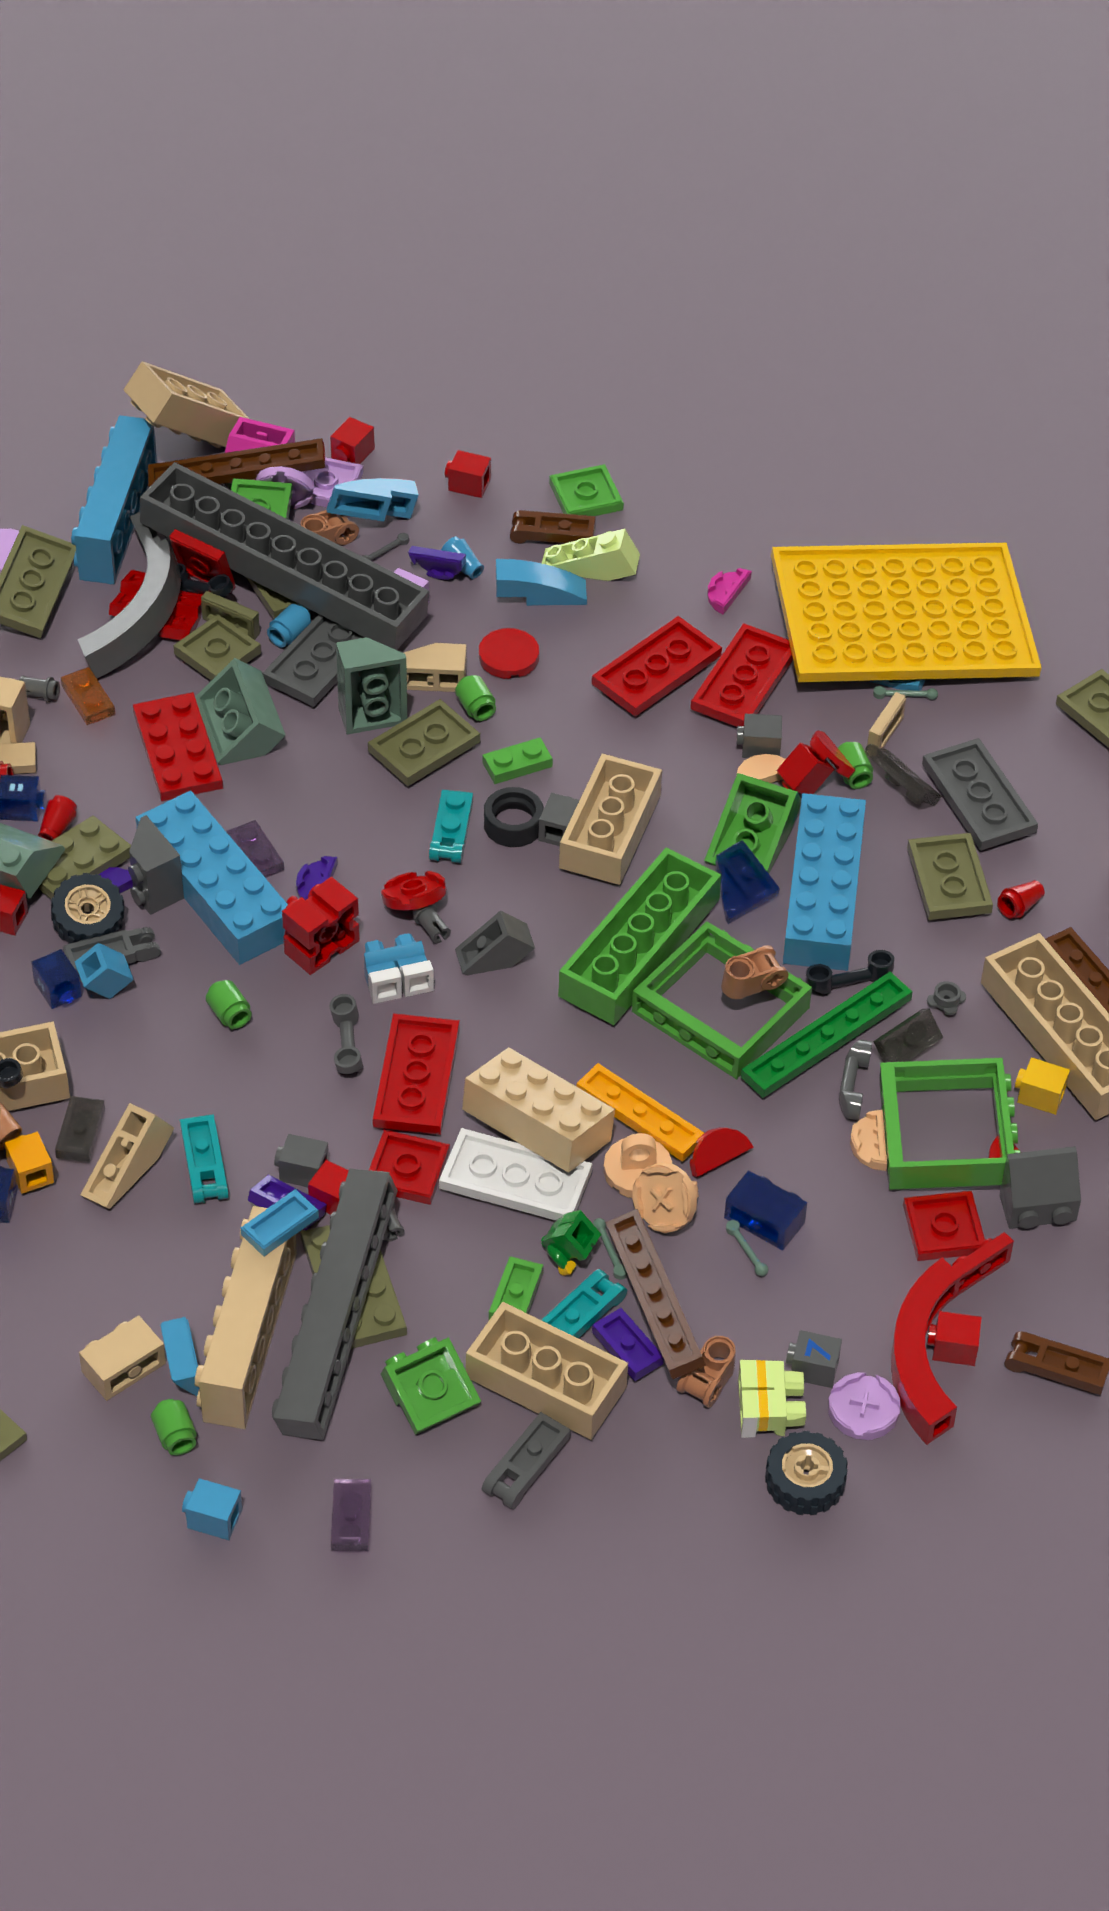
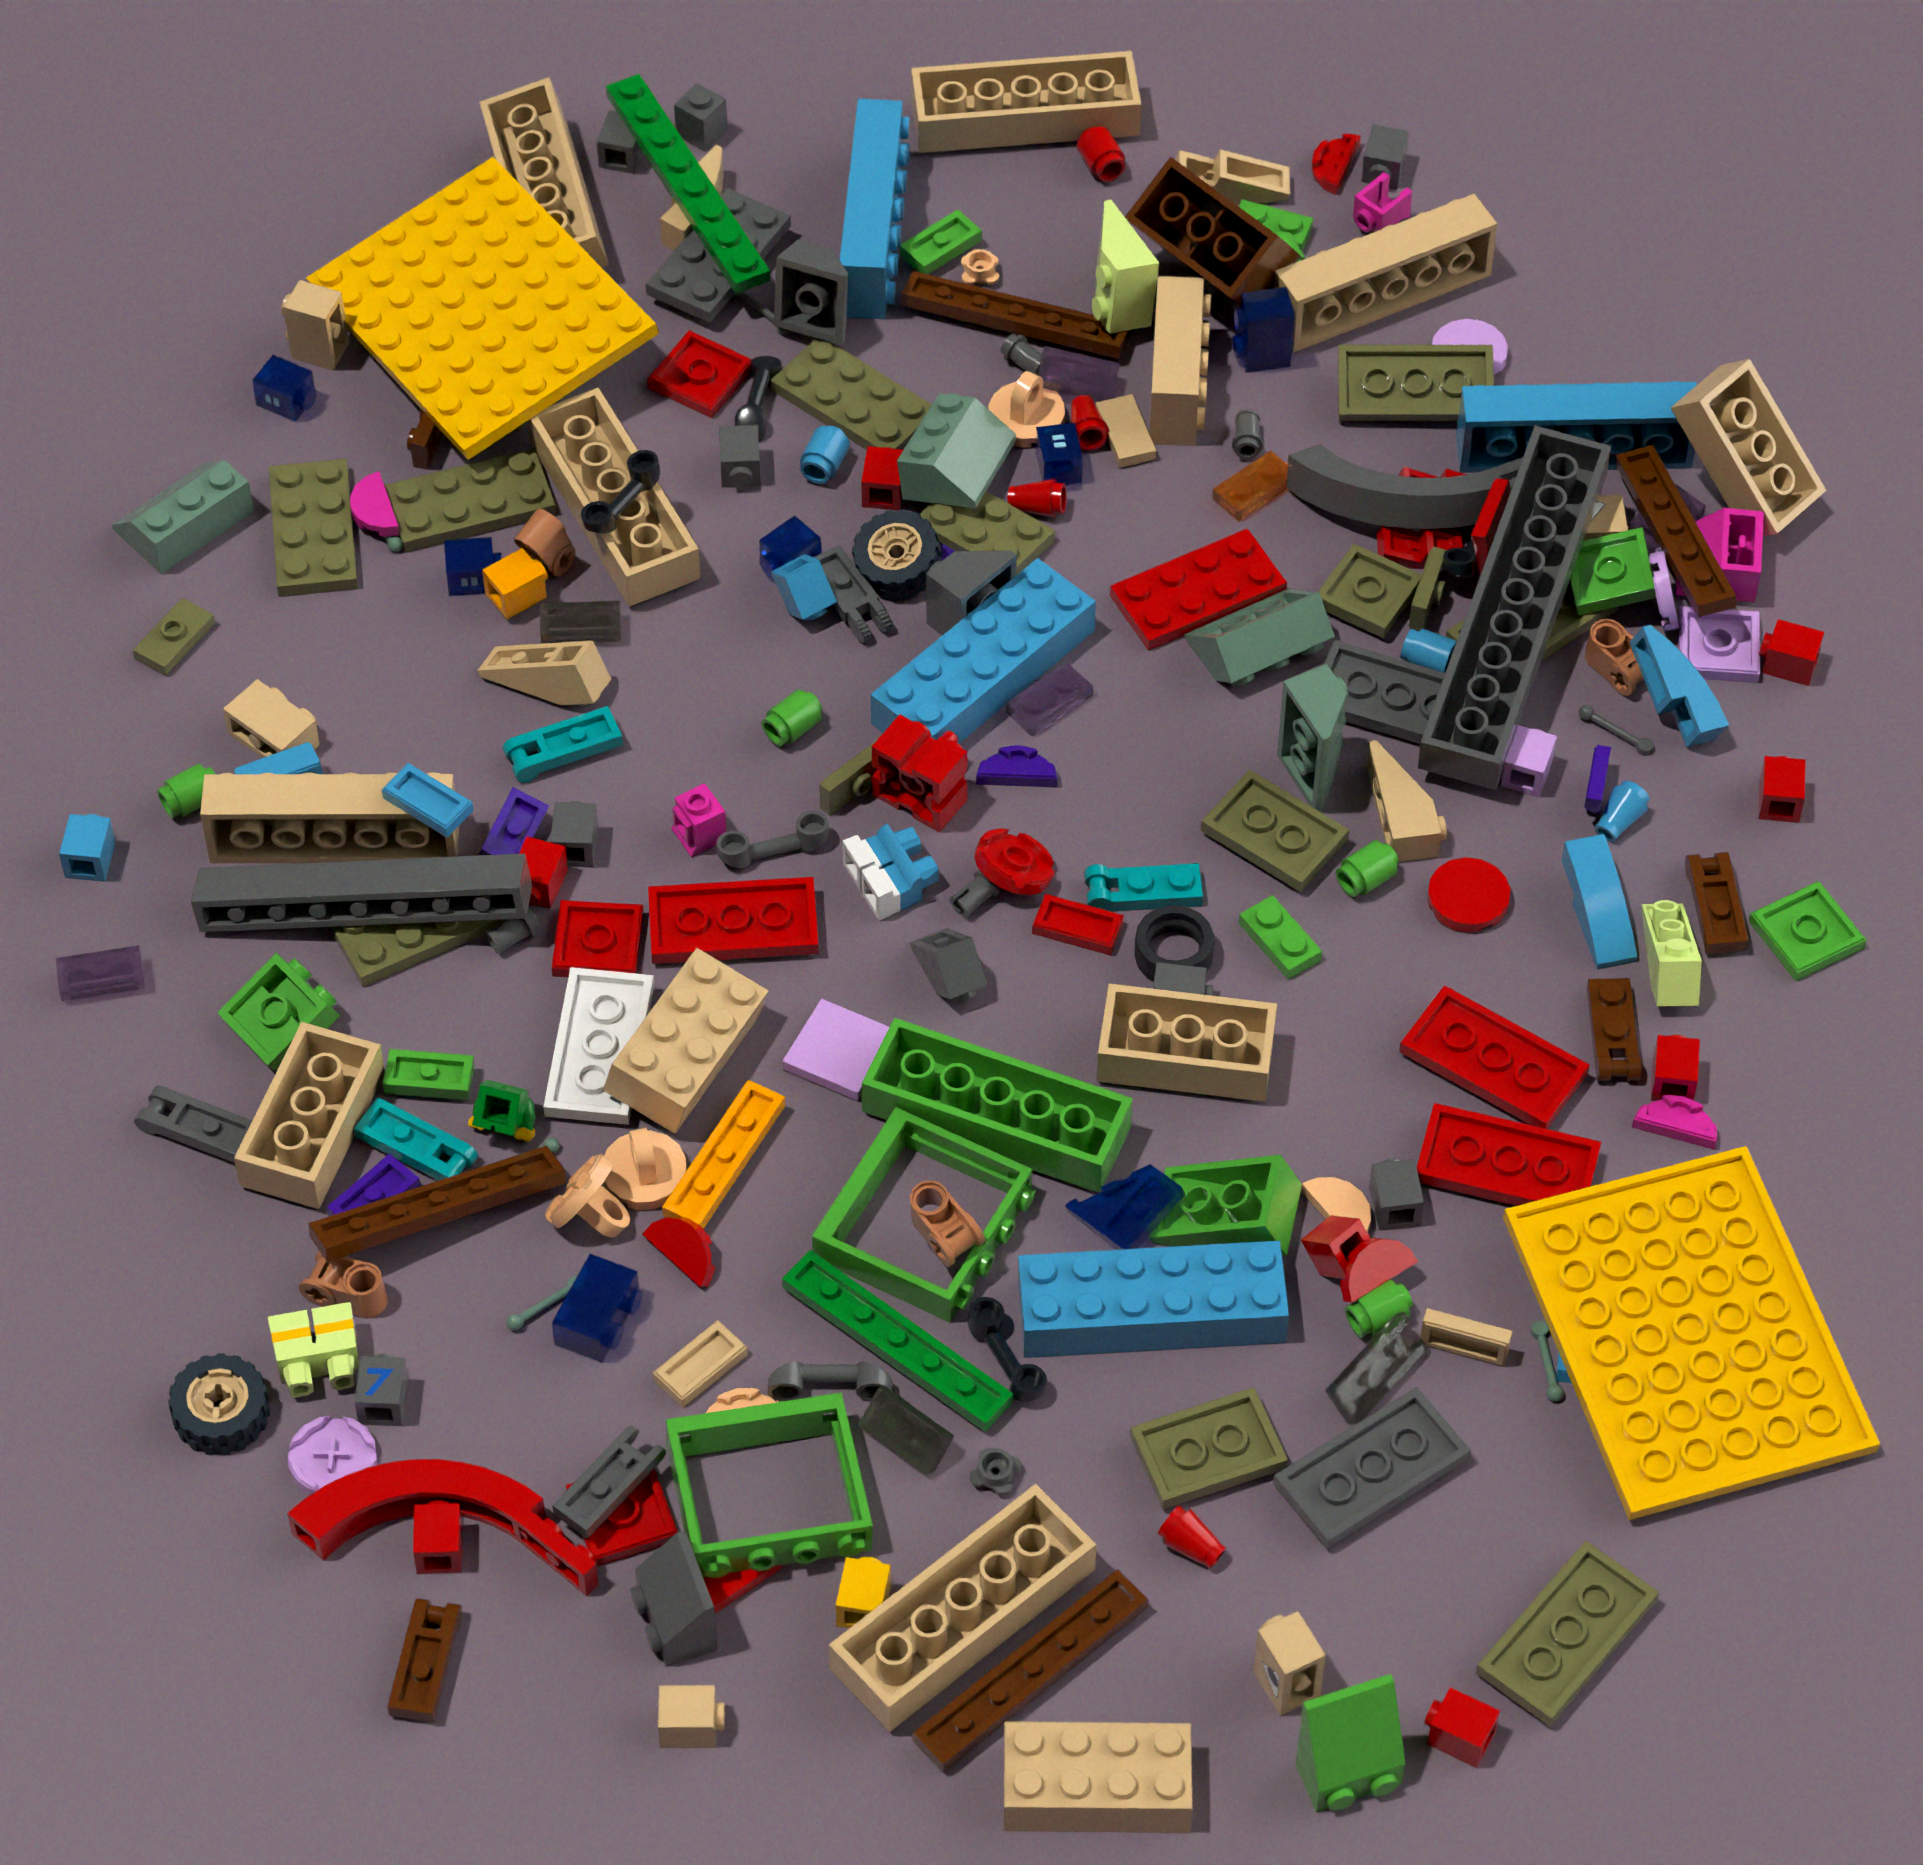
camera: 80 degrees right, 5 degrees up
(301, 974) = (847, 782): none -> olive plate
(313, 1069) = (698, 819): none -> dark pink window
(474, 871) = (1078, 924): none -> red tile
(554, 1030) = (835, 1049): none -> lavender tile
(645, 603) = (1613, 1029): none -> reddish brown plate
(689, 575) = (1675, 1067): none -> red brick
(821, 1158) = (700, 1363): none -> tan tile
(931, 1219) = (606, 1483): none -> dark grey hinge

